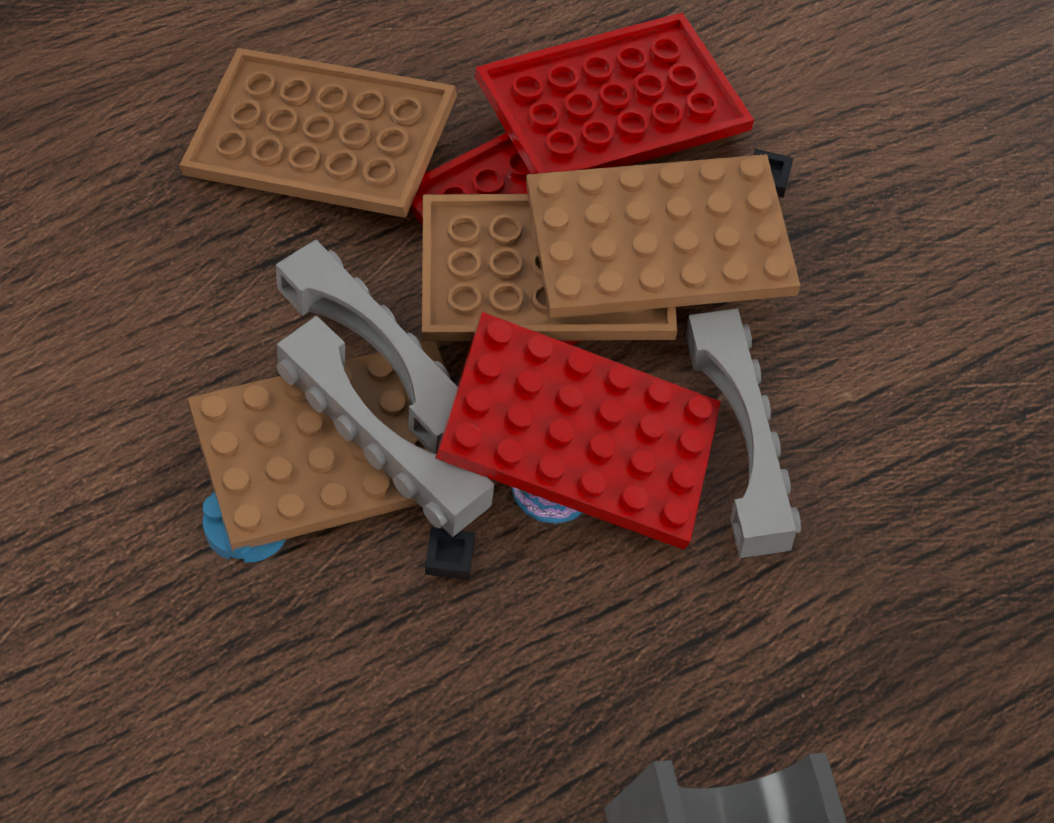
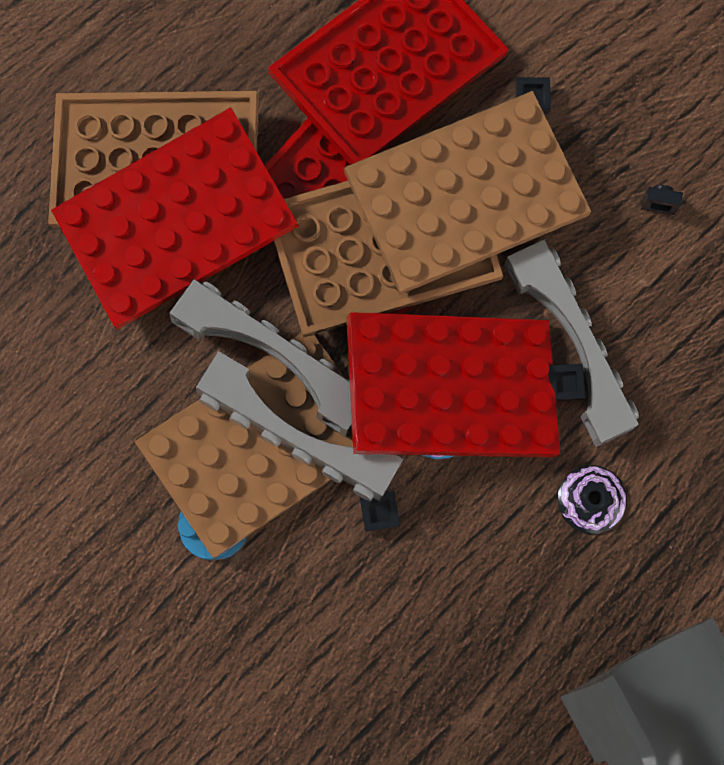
camera: 20 degrees left, 20 degrees up
(321, 177) = (174, 218): none -> red plate
(716, 631) = (578, 510): none -> dish
(723, 471) = (567, 381): none -> black plate
(891, 309) = (661, 199): none -> black plate

